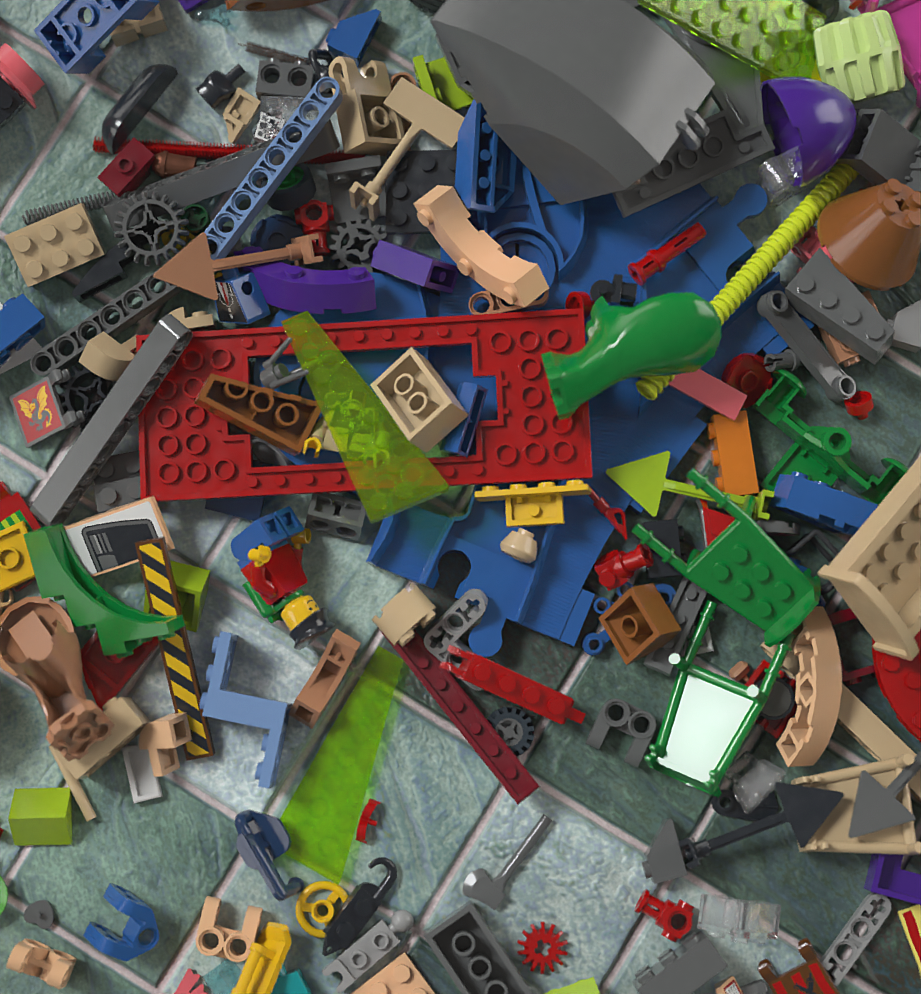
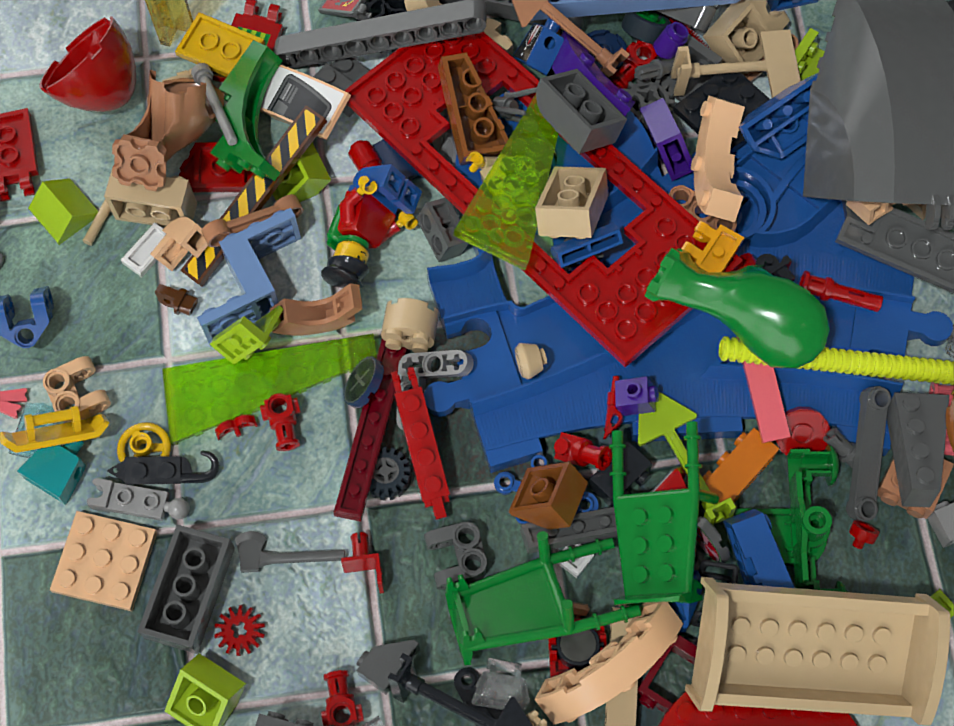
camera: 50 degrees right, 15 degrees down
(15, 601) = (202, 73): none -> light grey piece
(190, 703) = (219, 229): none -> nougat piece
(212, 524) = (363, 155): none -> red brick
(217, 781) = (179, 300): none -> reddish brown piece
(259, 843) = (159, 364): dark blue piece -> none
(308, 751) = (244, 336): none -> lime bracket
(328, 183) = (670, 39): none -> dark purple brick
(339, 216) = (654, 69): none -> dark grey axle
(343, 325) = (579, 111): none -> dark grey brick
(396, 782) = (282, 421): none -> red connector
(419, 690) = (362, 381): none -> tile
(533, 505) = (569, 343): yellow bracket -> none
(563, 323) = (720, 248): none -> light orange plate
(563, 806) = (362, 559): none -> red bracket
(618, 487) = (636, 396): none -> dark purple brick

